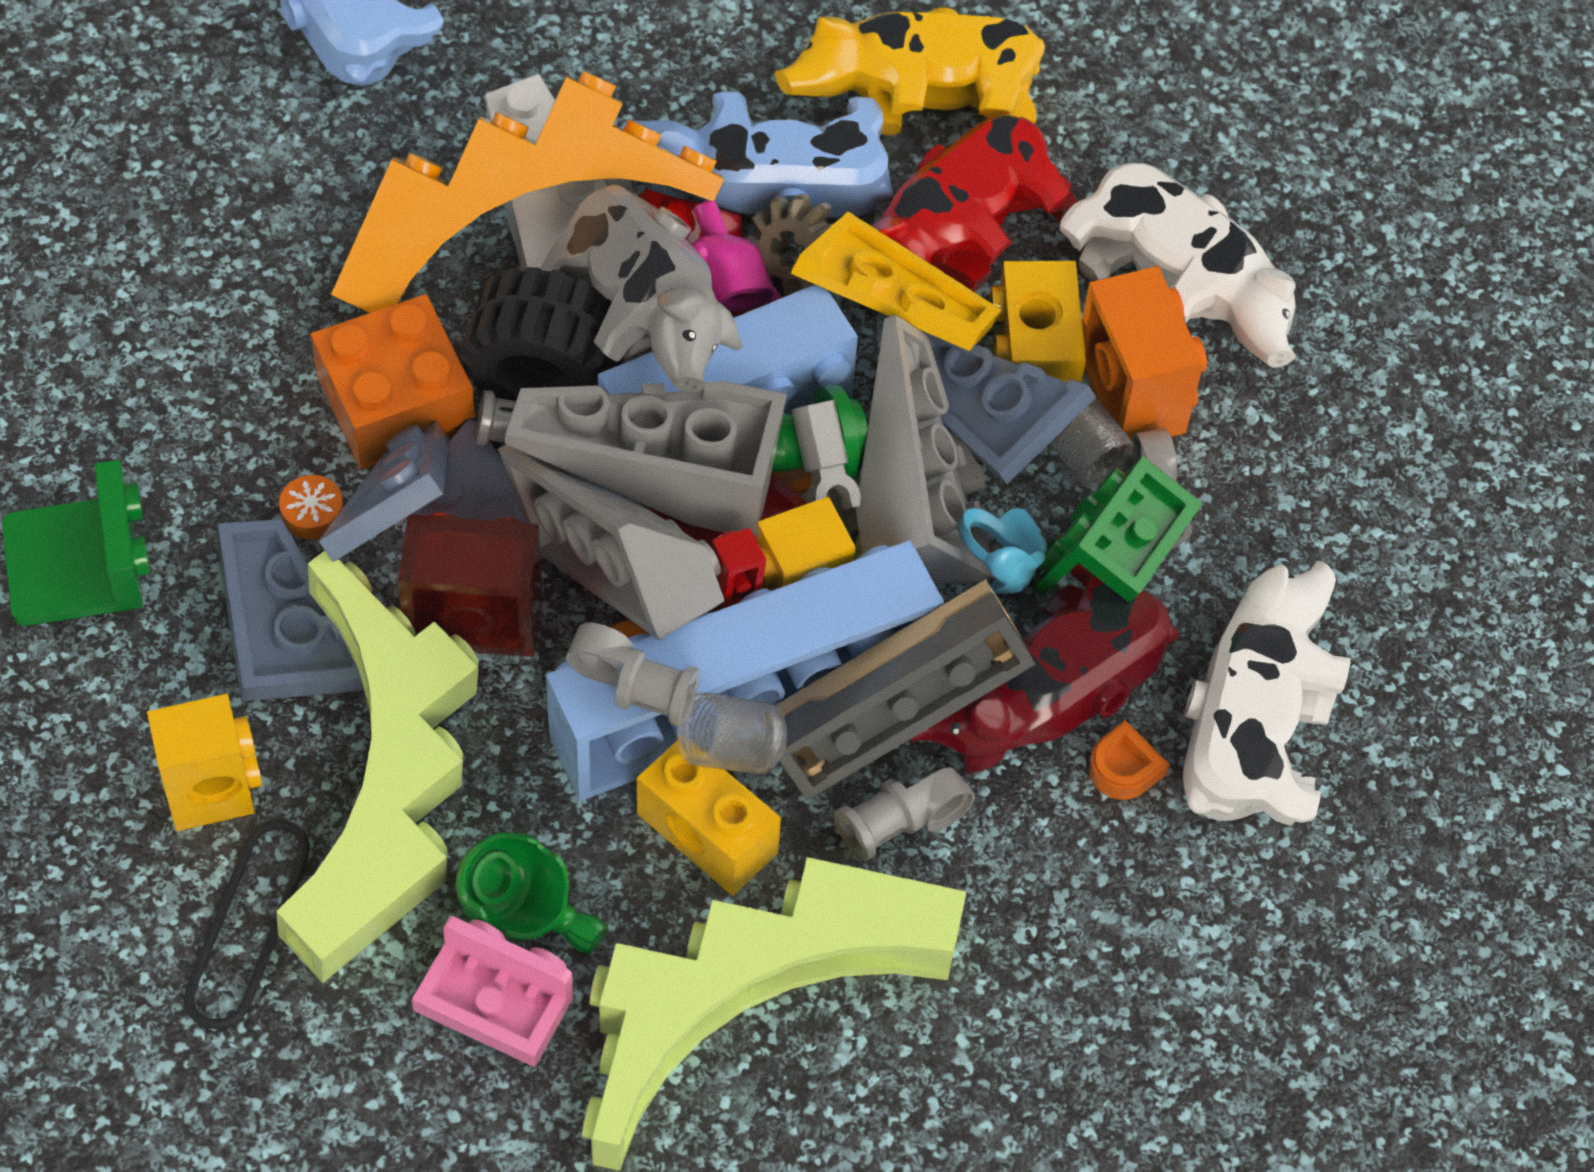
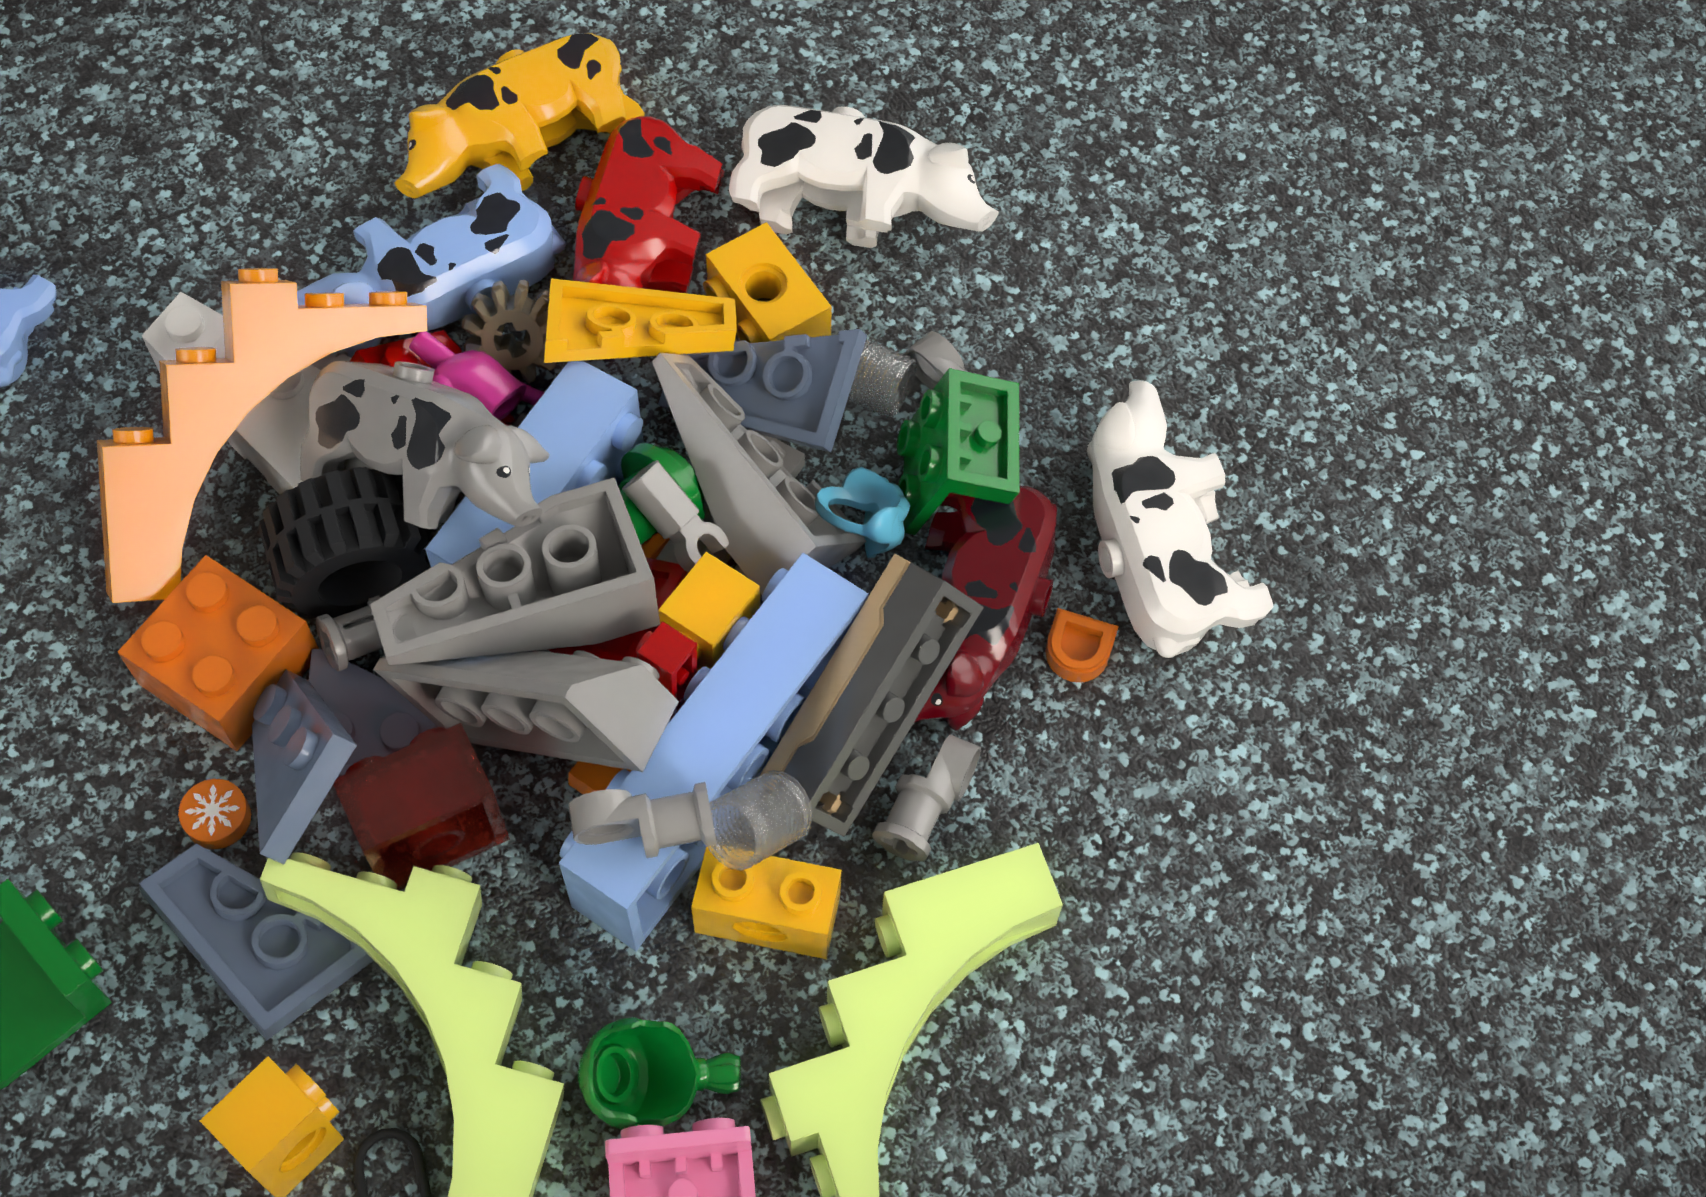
camera: 30 degrees left, 5 degrees up
(1141, 352) = (876, 273): orange brick -> none

